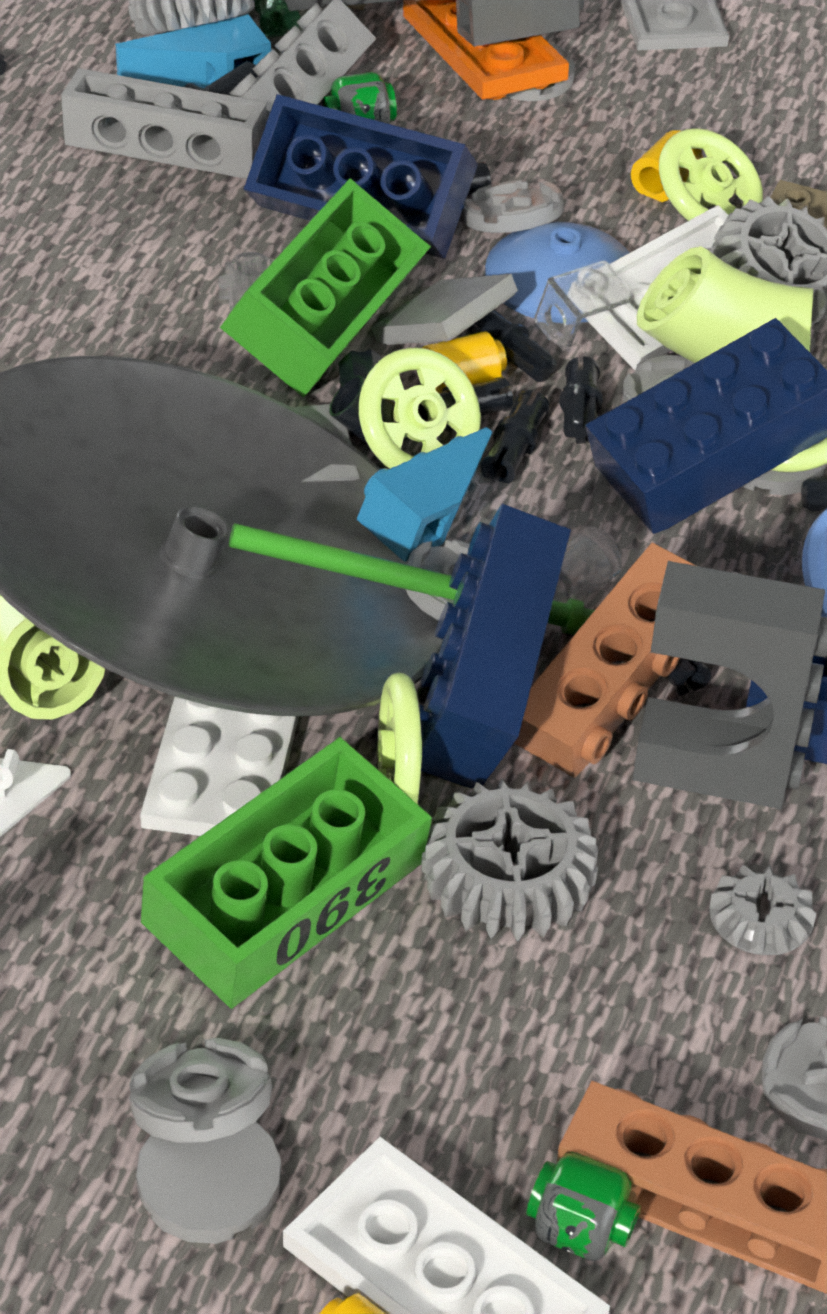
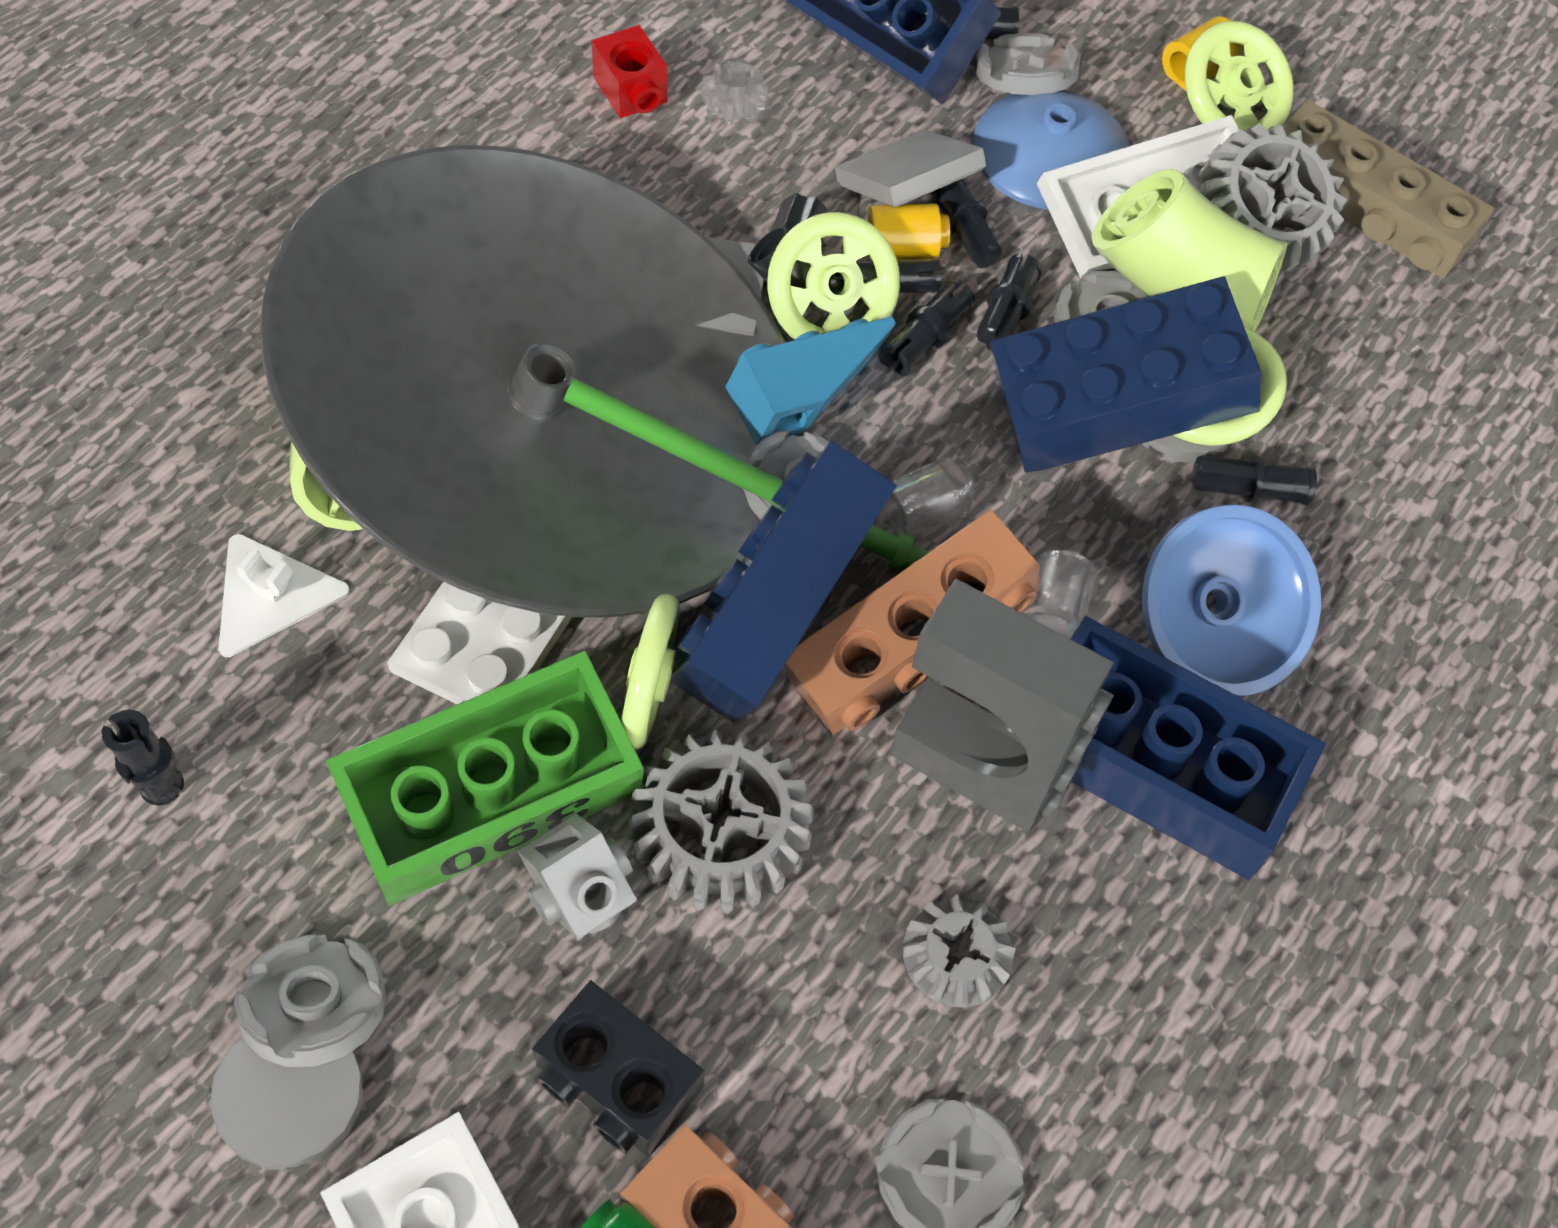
camera: 15 degrees right, 15 degrees up
(144, 288) = (630, 71): none -> red brick
(324, 287) = (795, 115): bright green brick -> none
(404, 928) = (578, 877): none -> light grey brick
(509, 1058) = (632, 1057): none -> black brick
(578, 296) = (1049, 187): clear bracket -> none

